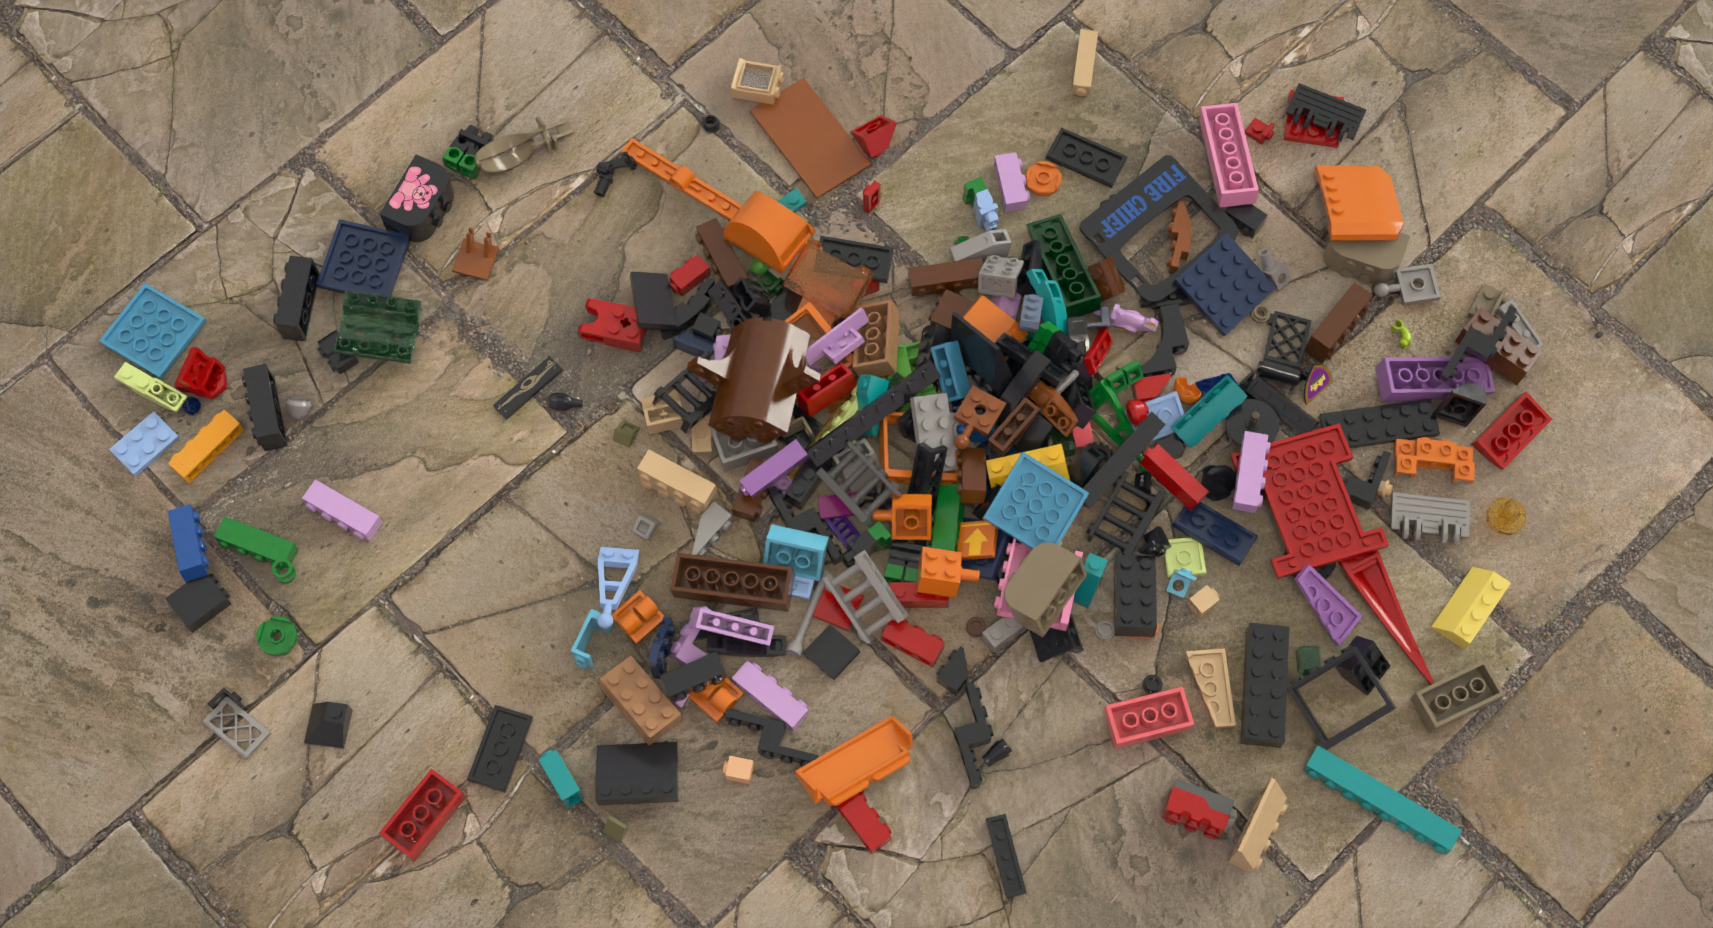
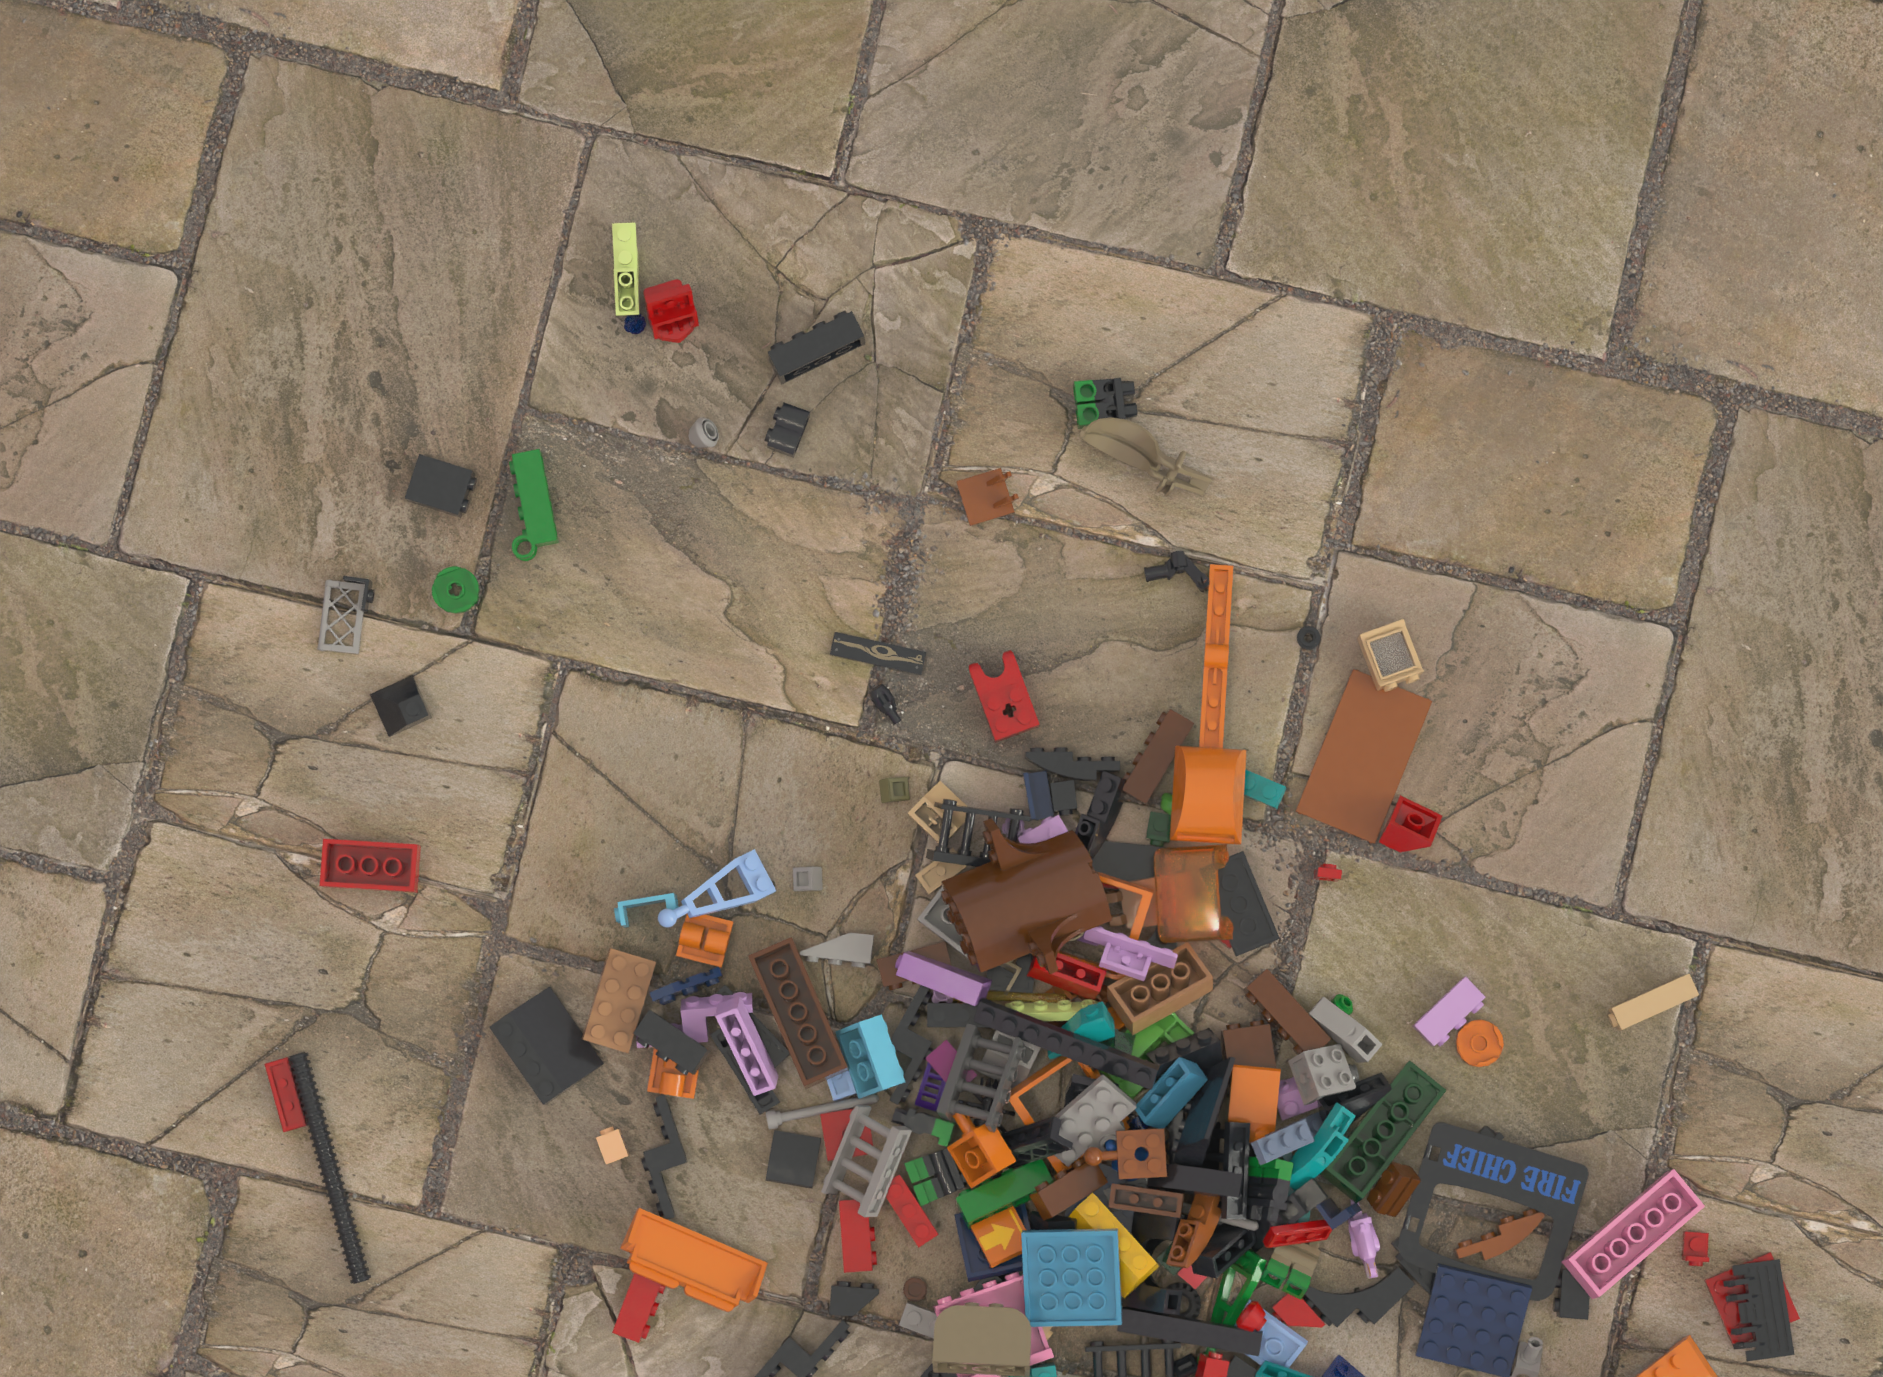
camera: 60 degrees right, 15 degrees up
(144, 444) = (566, 305): light blue plate -> none
(152, 331) = (688, 221): dark azure plate -> none
(188, 542) = (489, 433): blue brick -> none
(206, 446) = (601, 371): light orange brick -> none
(264, 407) = (677, 403): black brick -> none
(341, 510) = (623, 560): lavender brick -> none
(363, 259) = (906, 381): dark blue plate -> none
(379, 320) = (847, 451): clear green slope -> none
(419, 200) = (1008, 394): black brick -> none
(500, 748) = (486, 892): black tile -> none
(561, 778) = (489, 977): teal brick -> none
(615, 828) = (478, 1062): olive slope -> none
(652, 300) = (1053, 721): black tile -> none
(676, 482) = (868, 884): tan brick -> none
(689, 275) = (1111, 737): red brick -> none
(751, 296) = (1128, 820): black brick -> none
(770, 696) = (707, 1127): lavender brick -> none
(941, 572) = (940, 1224): orange brick -> none
(980, 199) = (1396, 1001): light blue hips -> none
(1086, 157) = (1536, 1075): black tile -> none
(1187, 393) = (1318, 1353): orange hair -> none

